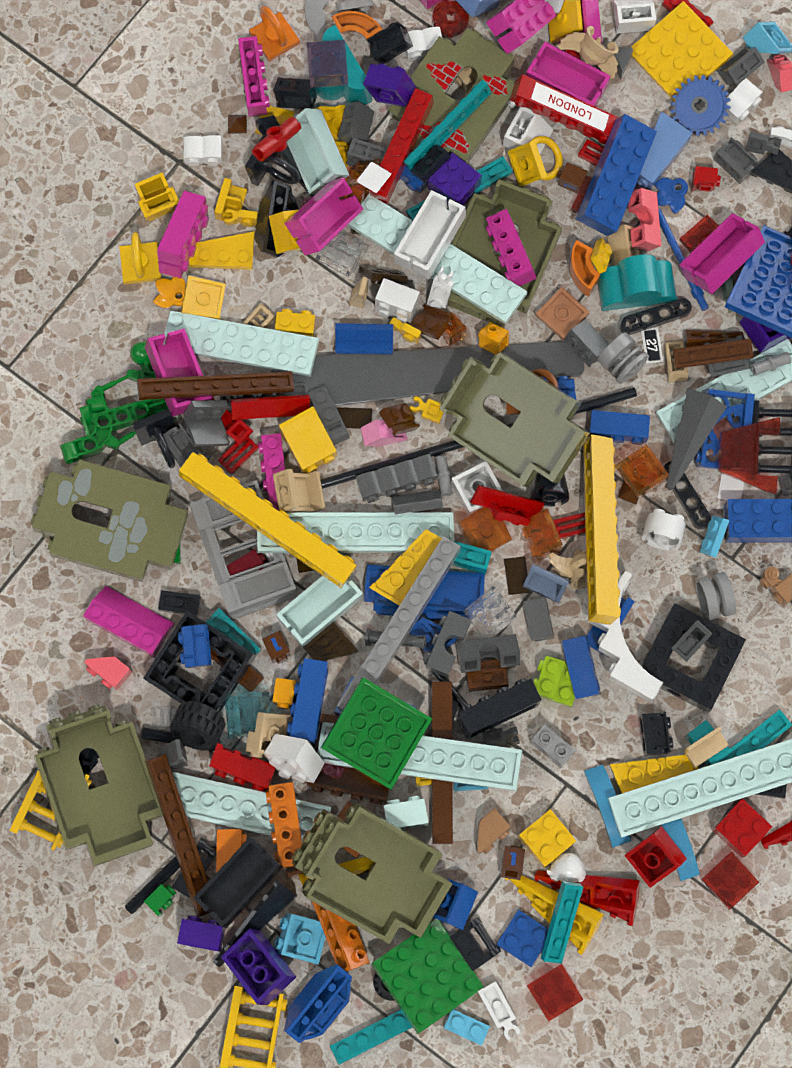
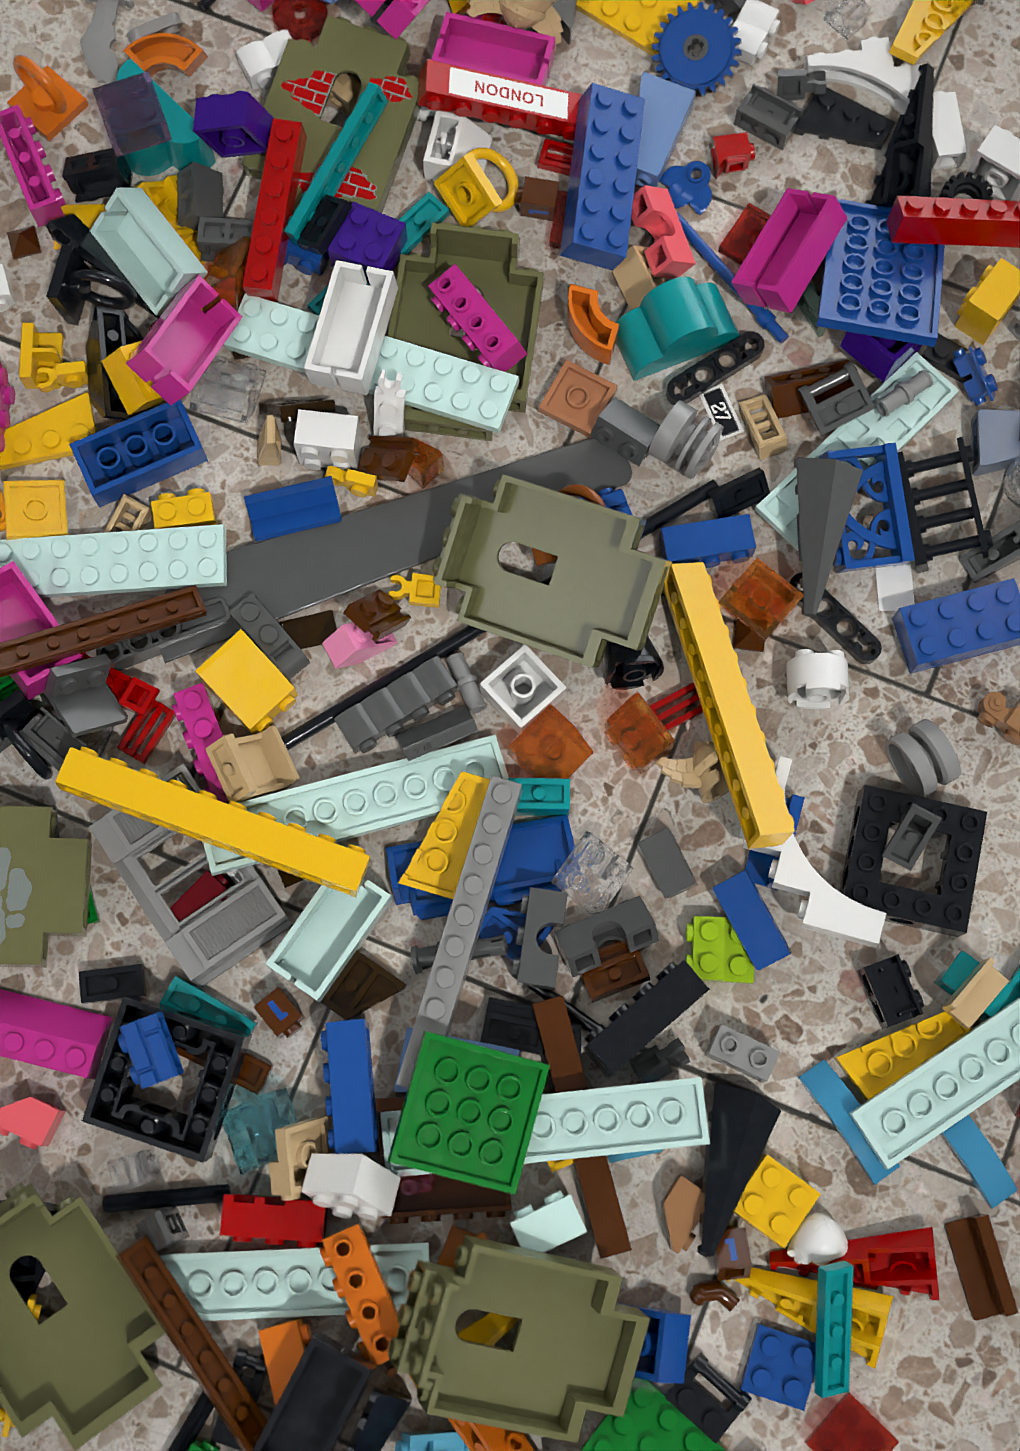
camera: 15 degrees left, 0 degrees up
(197, 726) = (185, 1175): black tyre -> none
(269, 407) = (174, 647): red tile -> none
(276, 139) = (83, 243): red piece -> none
(277, 278) = (138, 452): none -> blue brick
(284, 693) = (309, 1082): light orange brick -> none
(373, 177) = (244, 263): white sticker -> none
(390, 43) = (220, 67): black hinge -> none
(416, 692) = (511, 1026): none -> black plate
(493, 338) = (486, 459): light orange brick -> none
(495, 882) = (713, 1290): none -> reddish brown arm
(507, 506) = (575, 704): red bracket -> none
(516, 575) = (615, 804): dark brown sticker -> none
(537, 792) = (737, 1138): none -> black wedge
(545, 583) = (663, 806): sand blue tile -> none
(601, 255) = (612, 298): yellow plate -> none
(647, 401) = (738, 494): none -> black plate
(655, 857) = (947, 1185): red brick -> none
(663, 913) = (980, 1267): none -> reddish brown panel
(713, 353) = (817, 399): reddish brown tile -> none
(714, 536) = (894, 669): medium azure plate -> none
(740, 454) = (900, 535): clear red wing -> none

